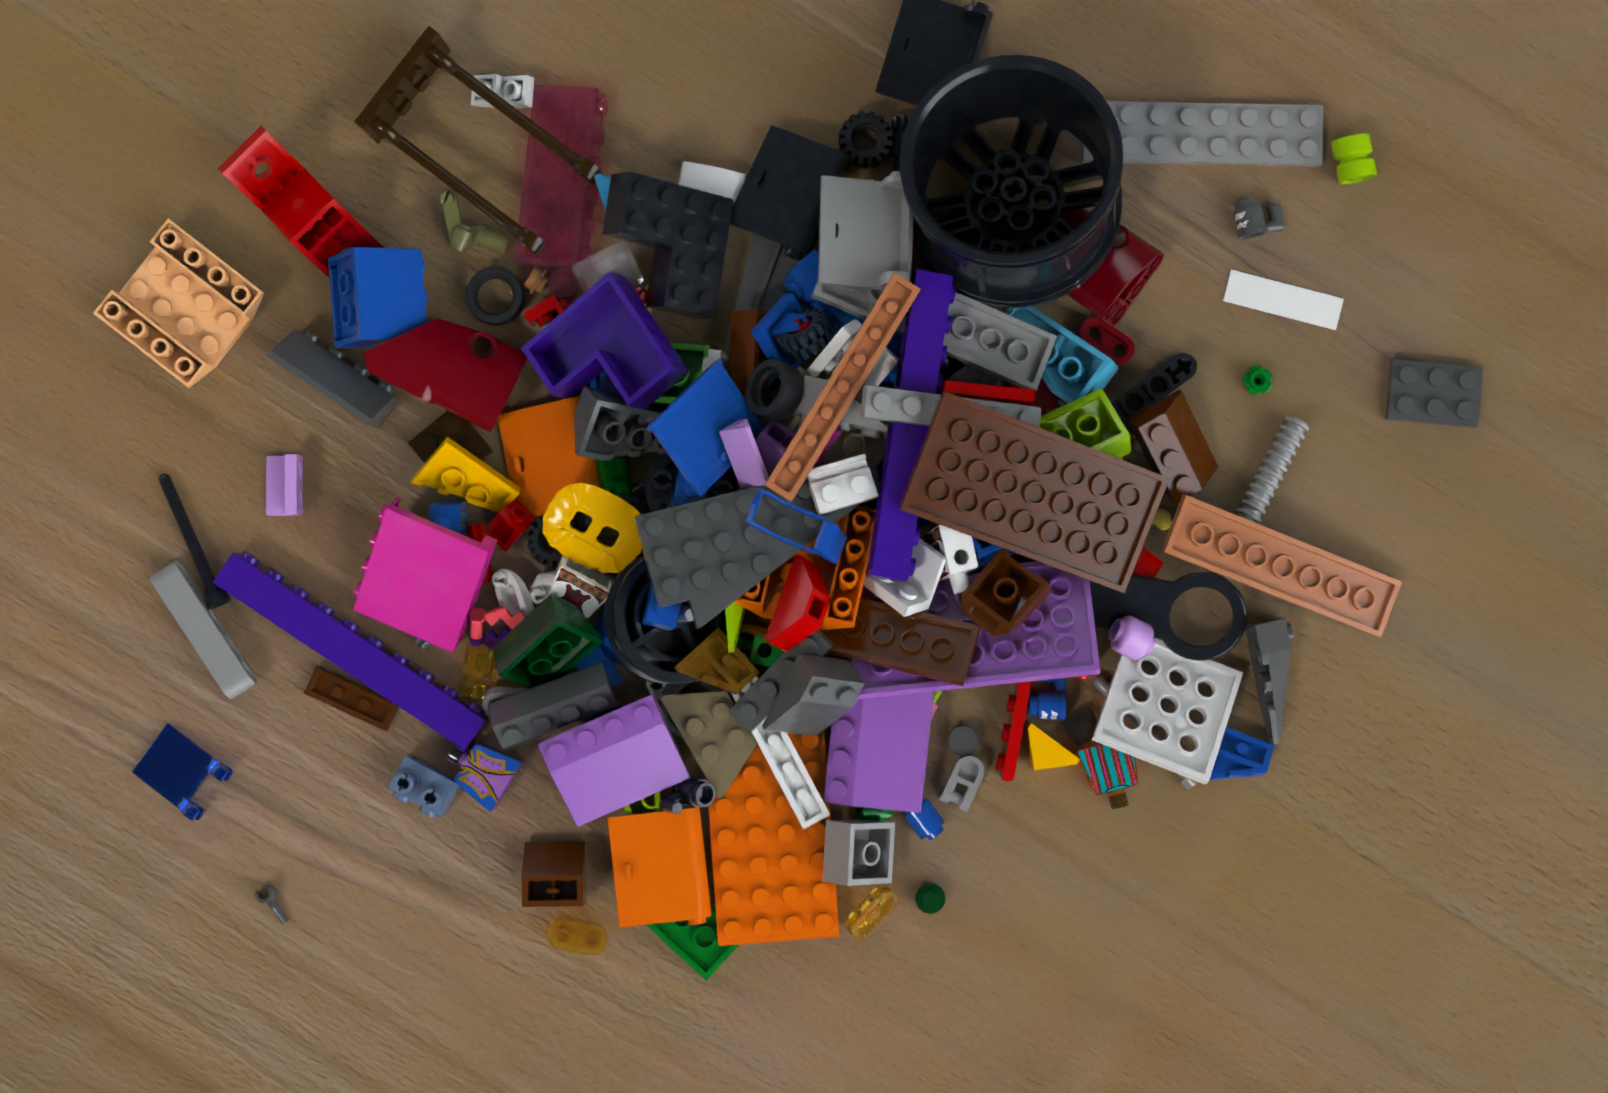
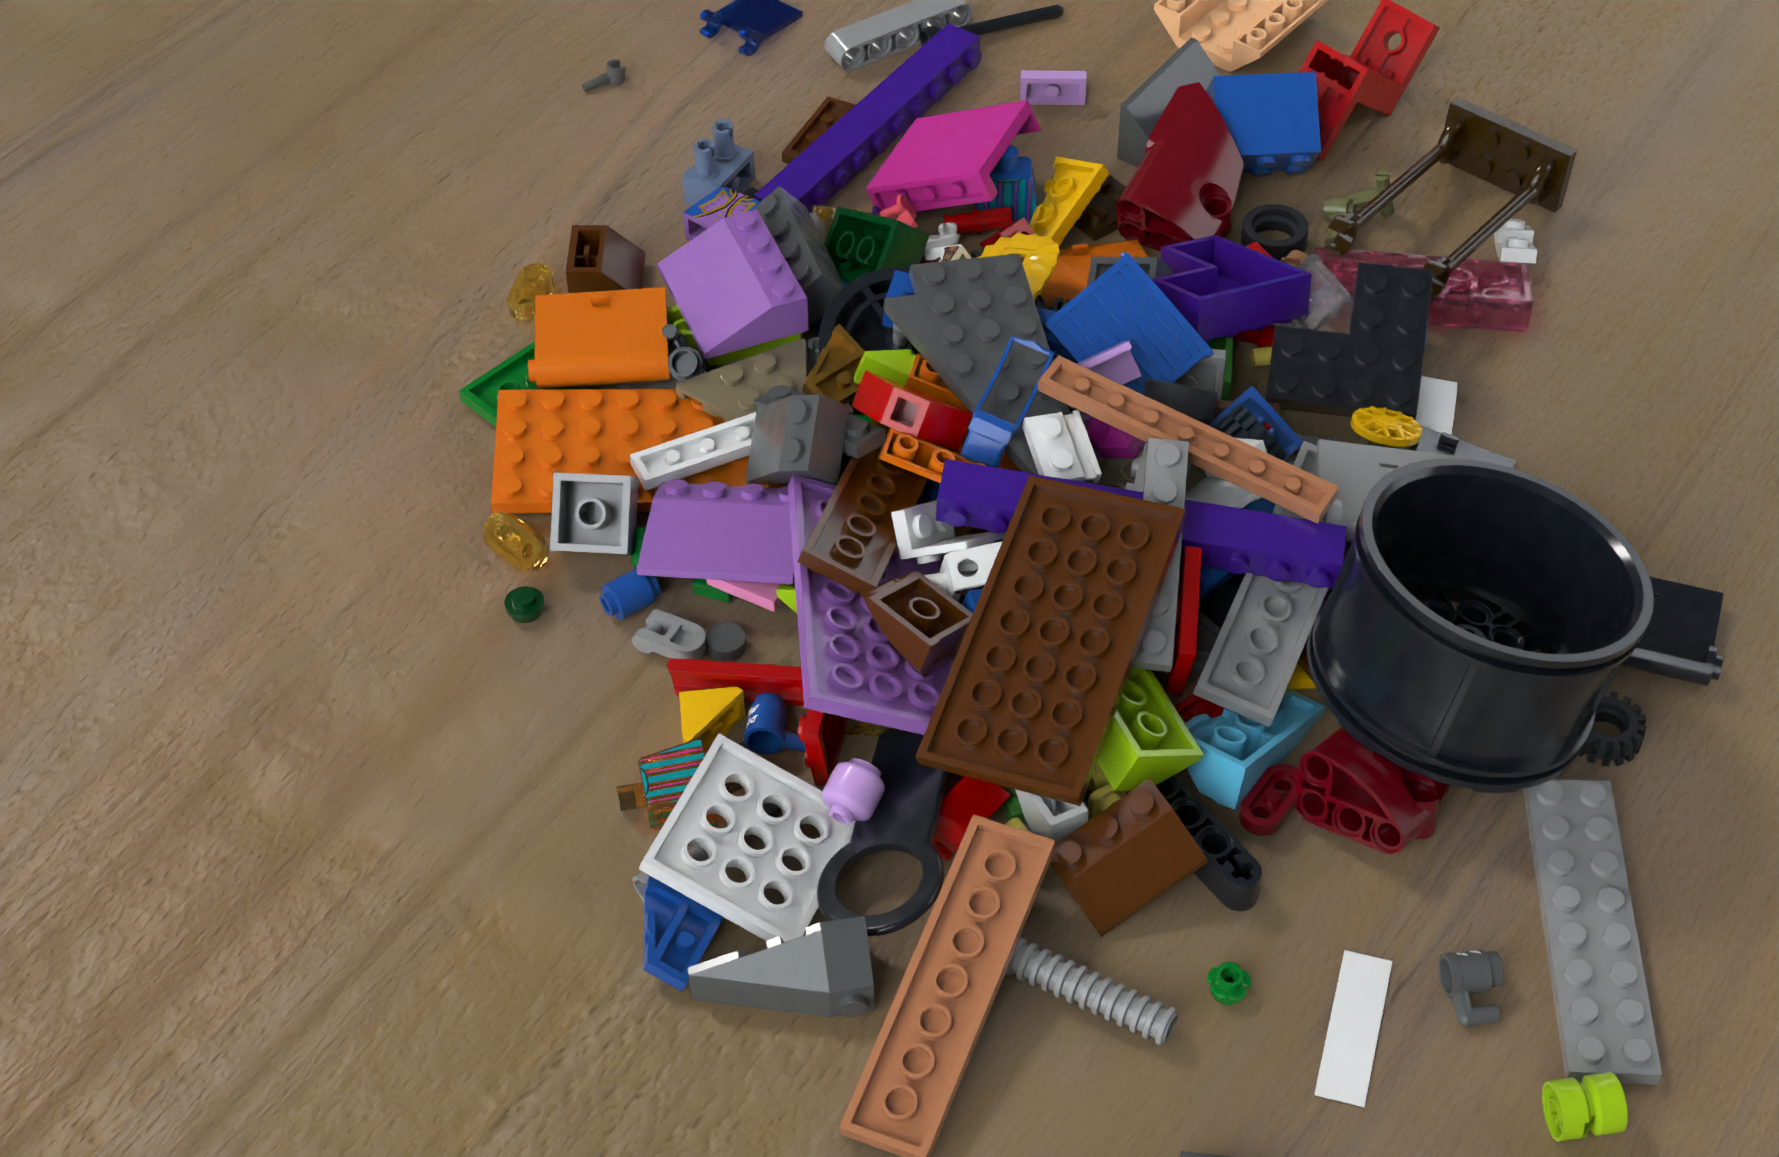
camera: 90 degrees right, 40 degrees down
(754, 225) = (1386, 426): none -> yellow wheel

